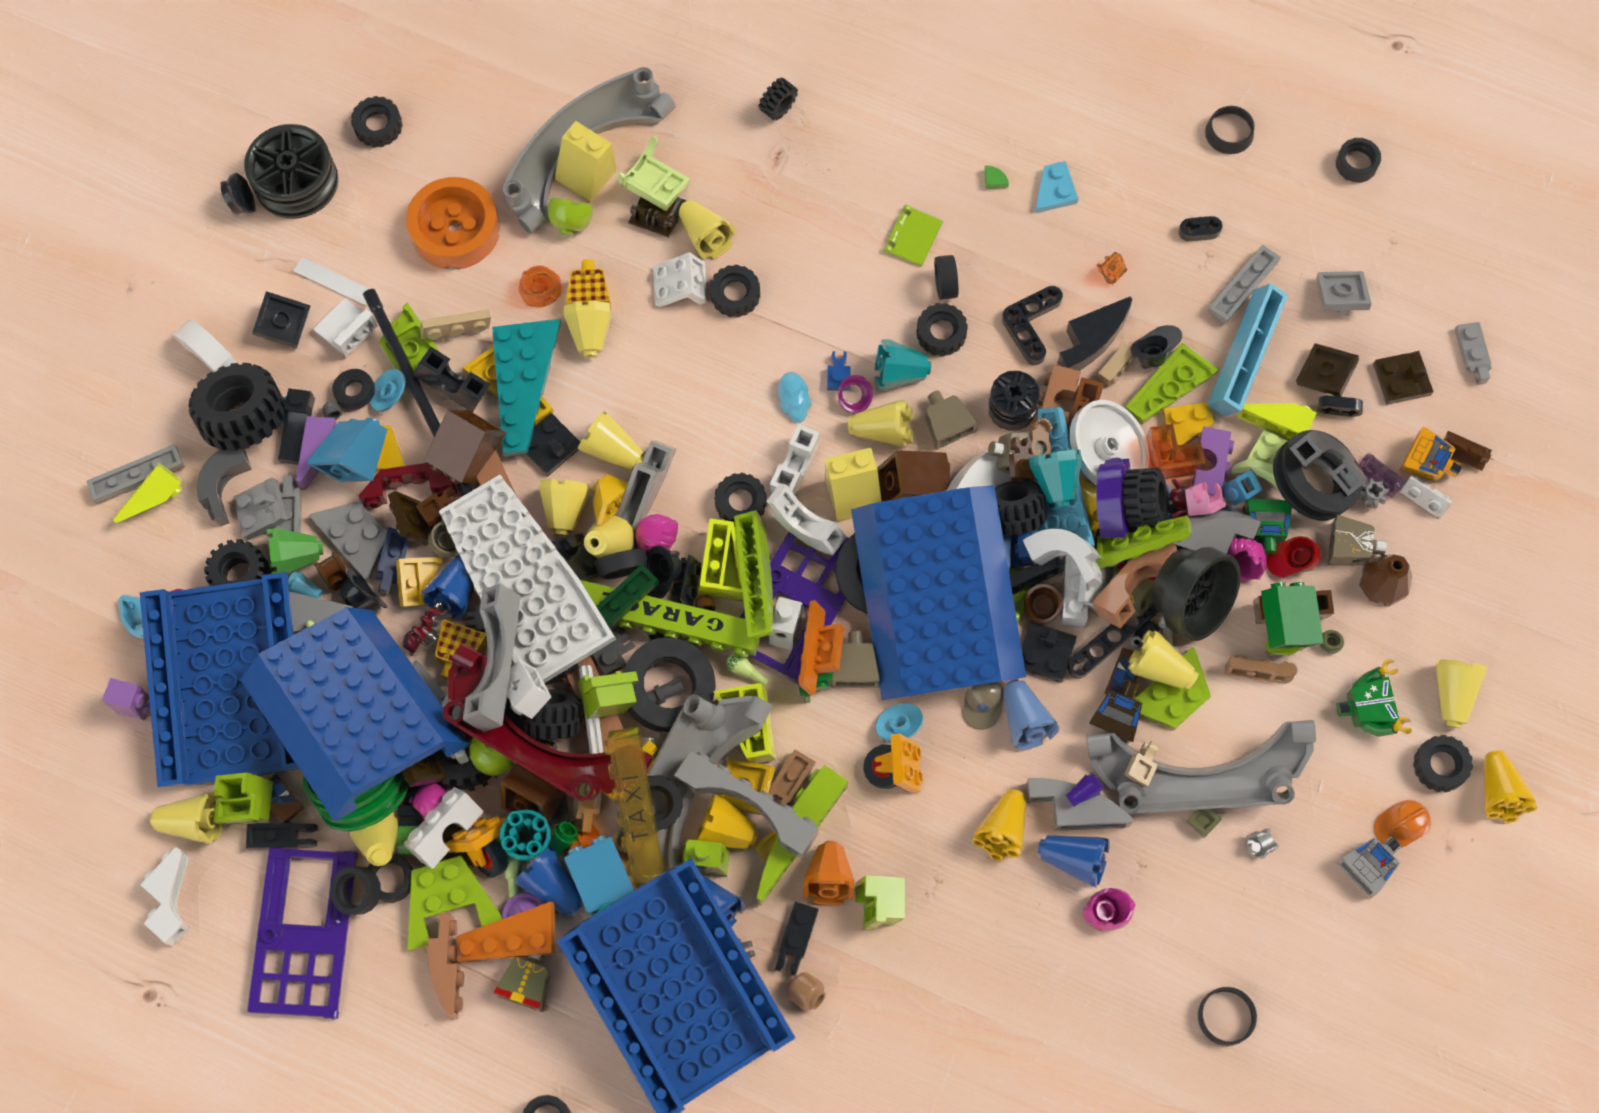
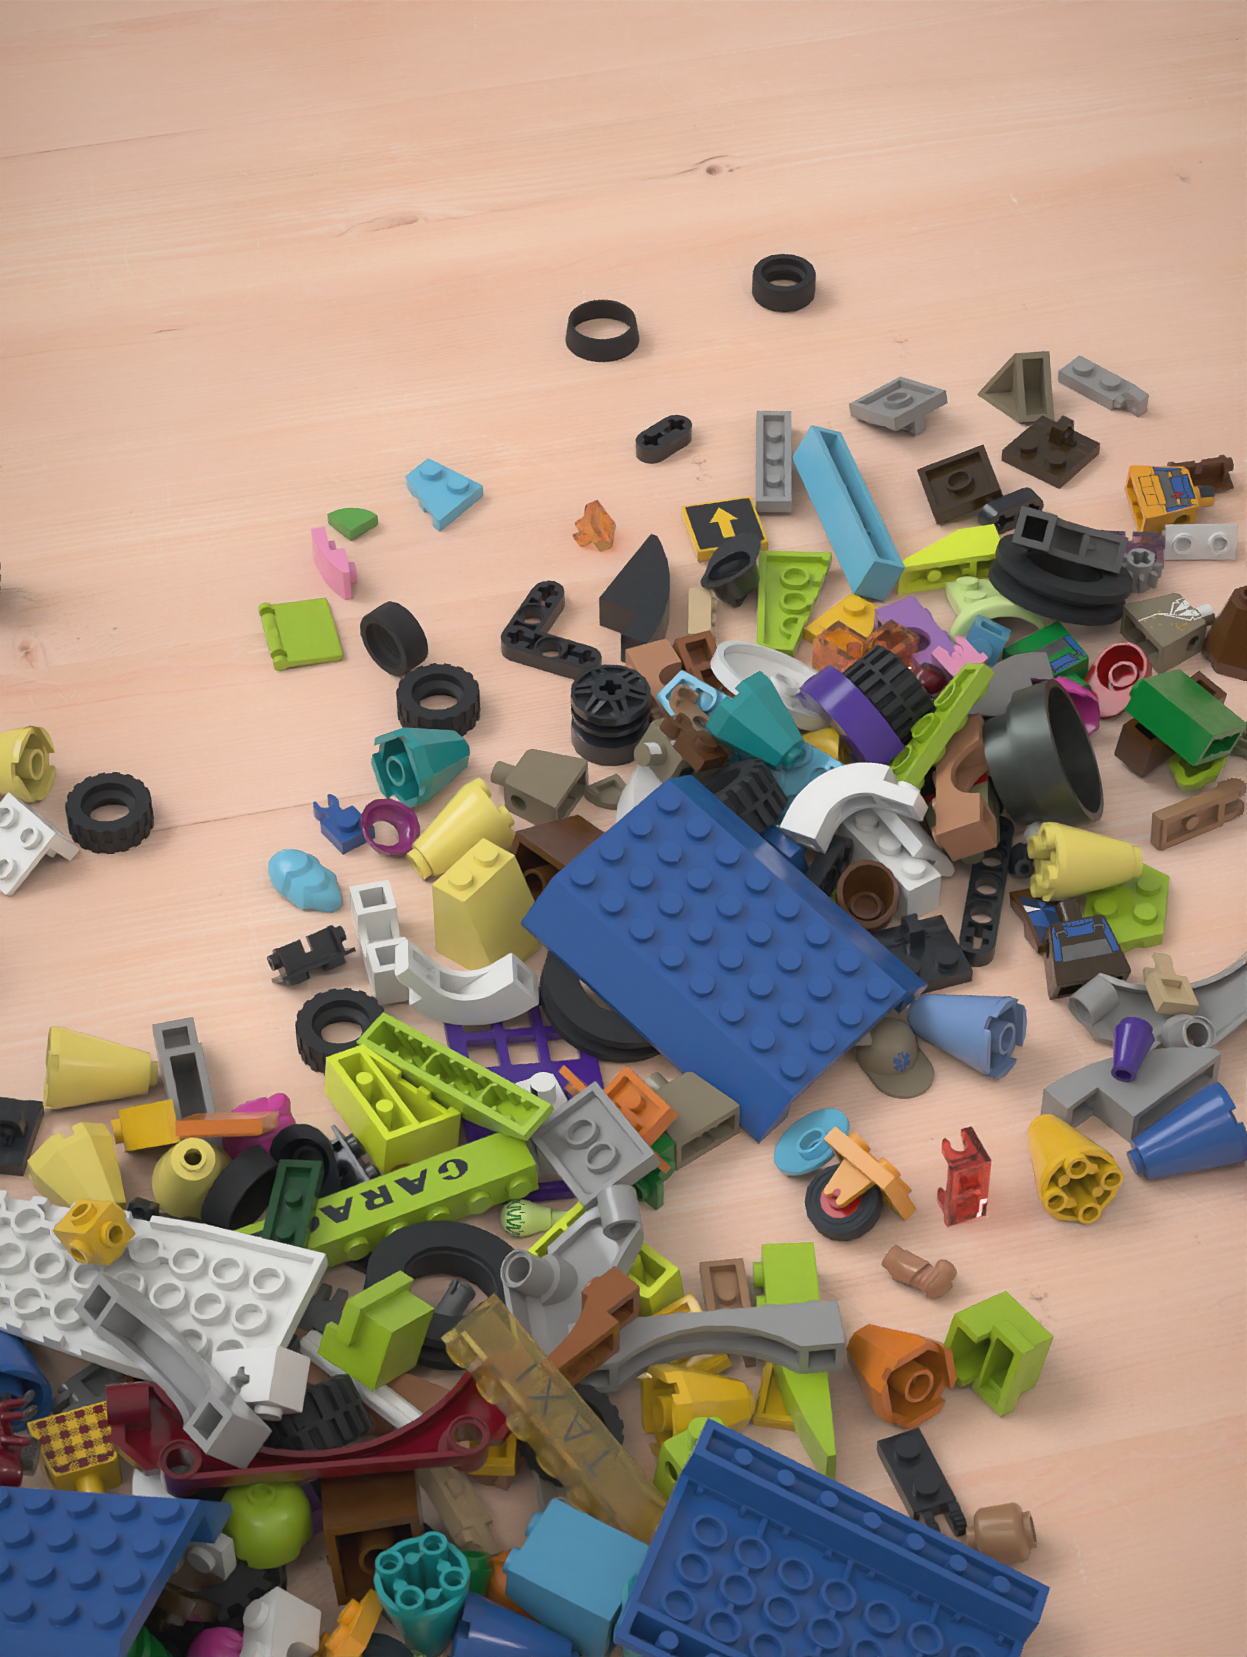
camera: 40 degrees left, 25 degrees down
(523, 552) = (94, 1231): none -> yellow brick
(630, 530) = (227, 1124): none -> orange tile
(707, 759) = (607, 1307): none -> dark orange slope
(769, 448) = (295, 963): none -> black hinge
(780, 663) = (593, 1145): none -> light grey plate
(887, 825) = (917, 1272): none -> nougat arm
(945, 801) = (966, 1180): none -> clear red hinge
(960, 204) = (333, 564): none -> bright pink slope
(979, 442) = (605, 792): none -> dark tan tile
(1181, 310) = (718, 521): none -> black tile
(1422, 326) = (1022, 387): none -> dark tan slope

